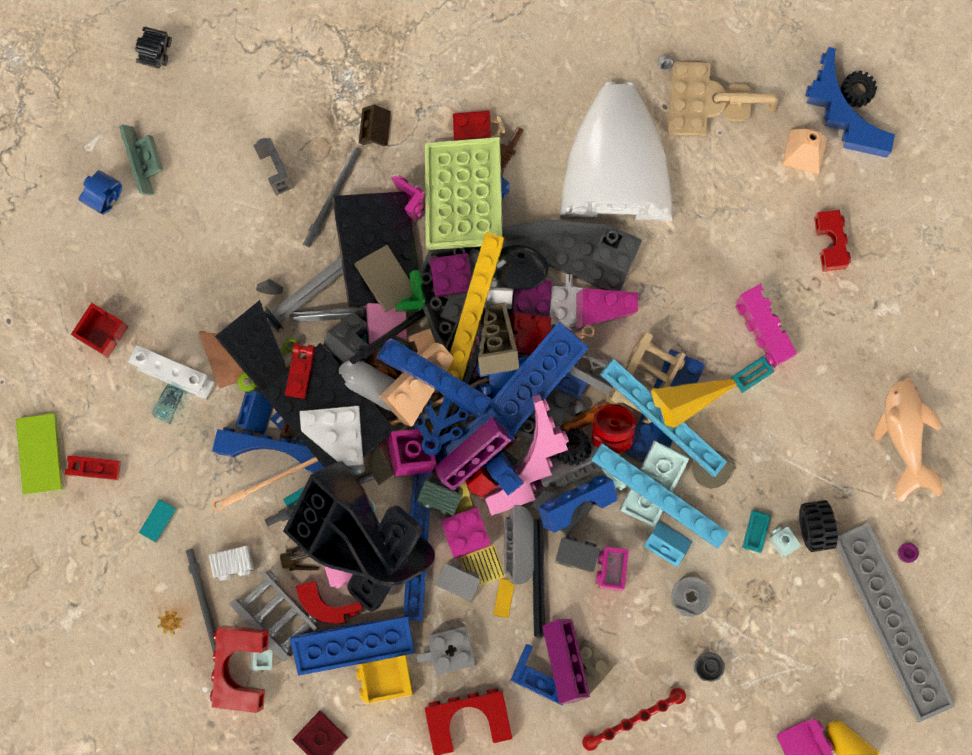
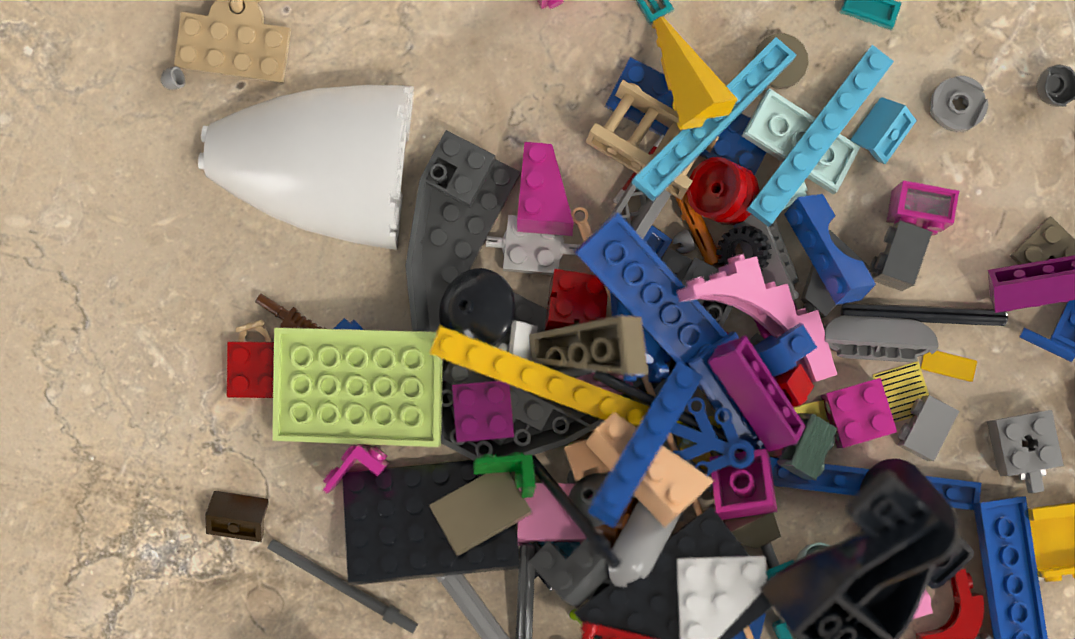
camera: 90 degrees left, 5 degrees up
(533, 301) = (529, 292): magenta plate -> none

